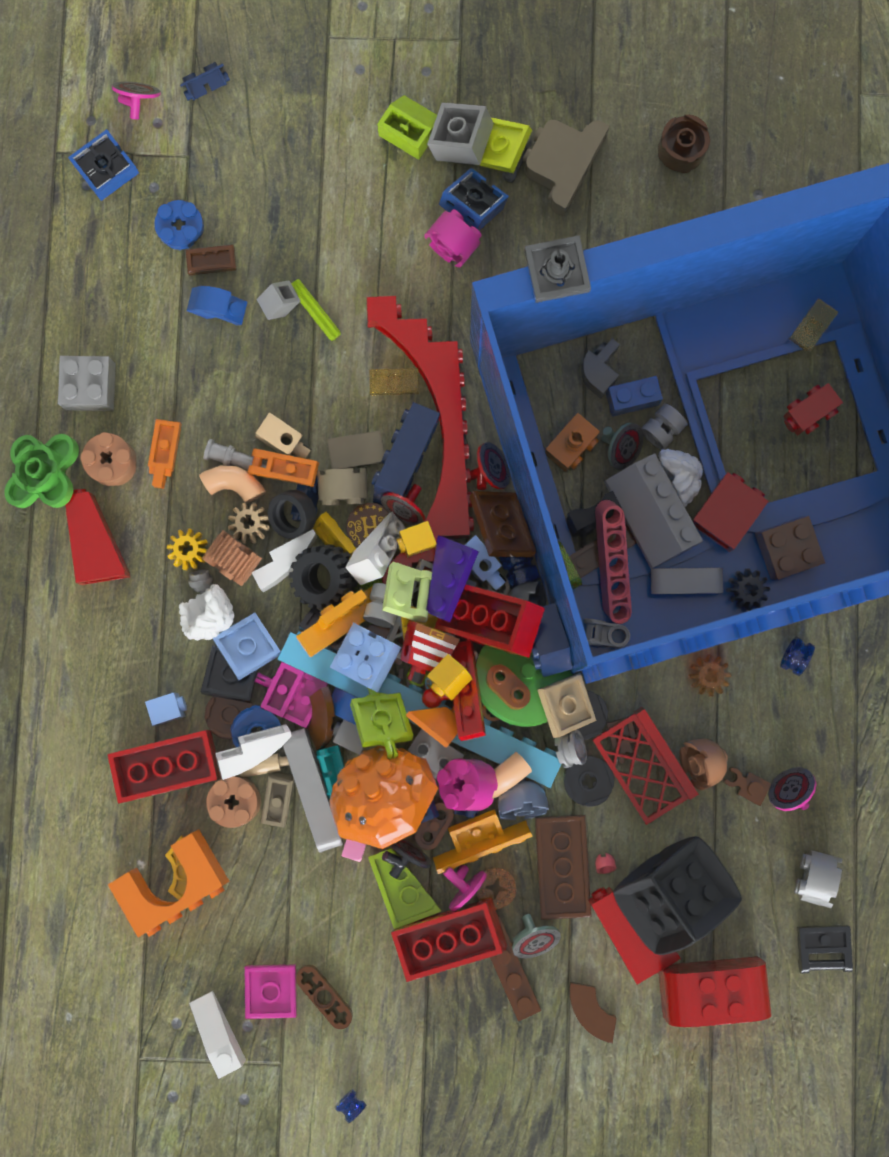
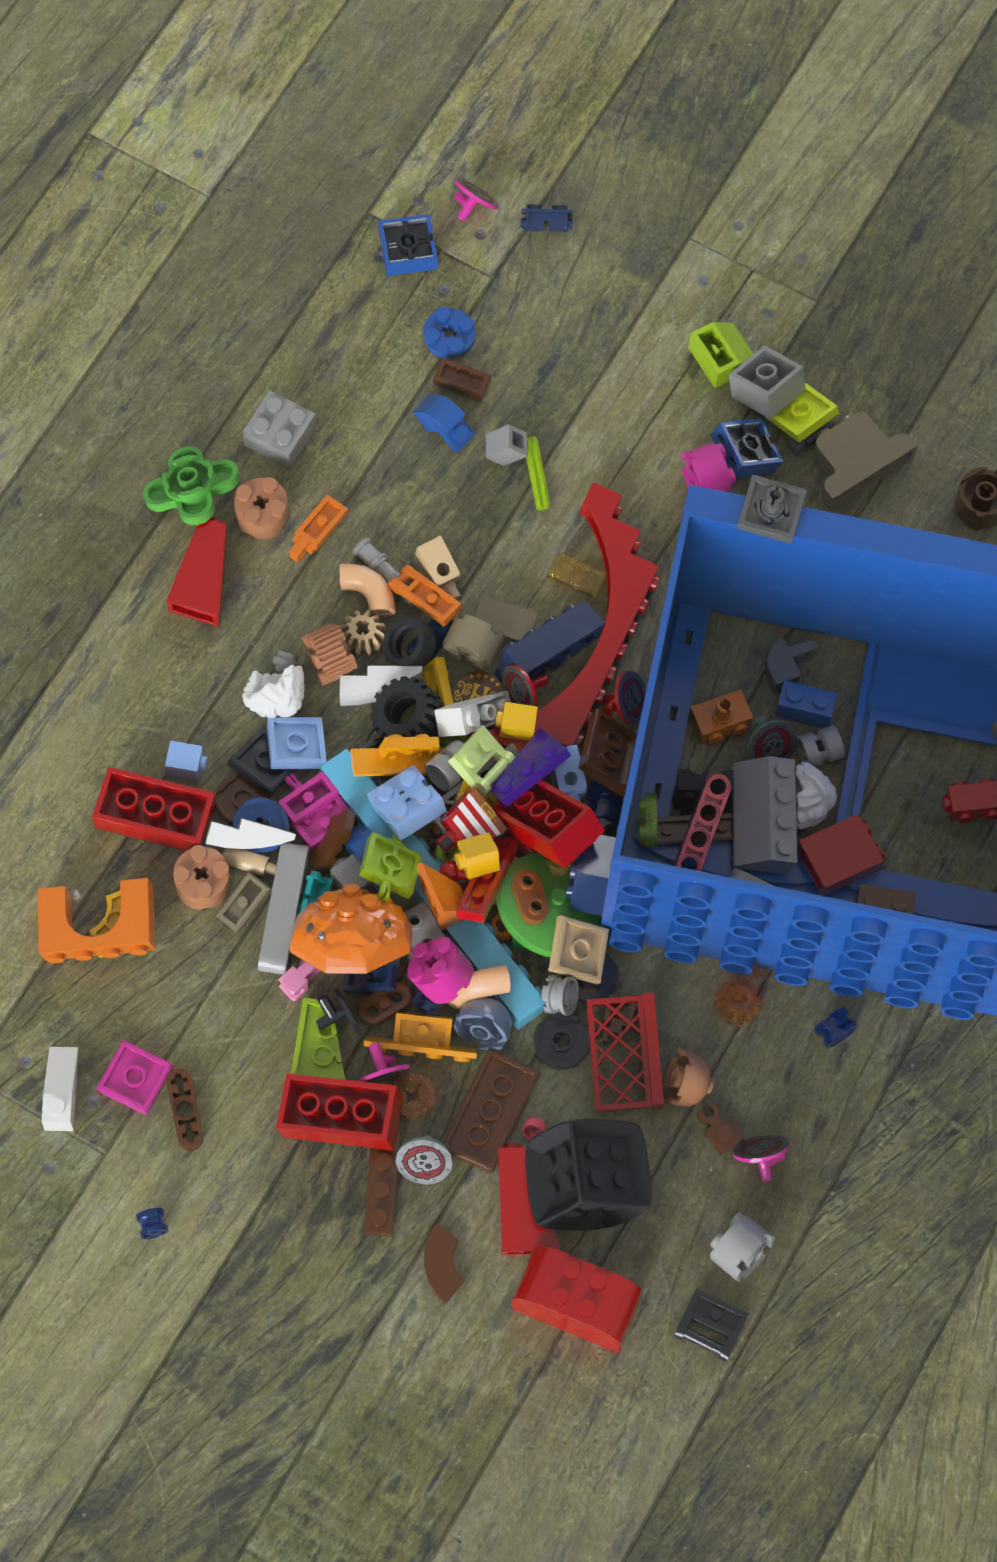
camera: 20 degrees right, 15 degrees down
(183, 542) = (289, 618): yellow gear -> none

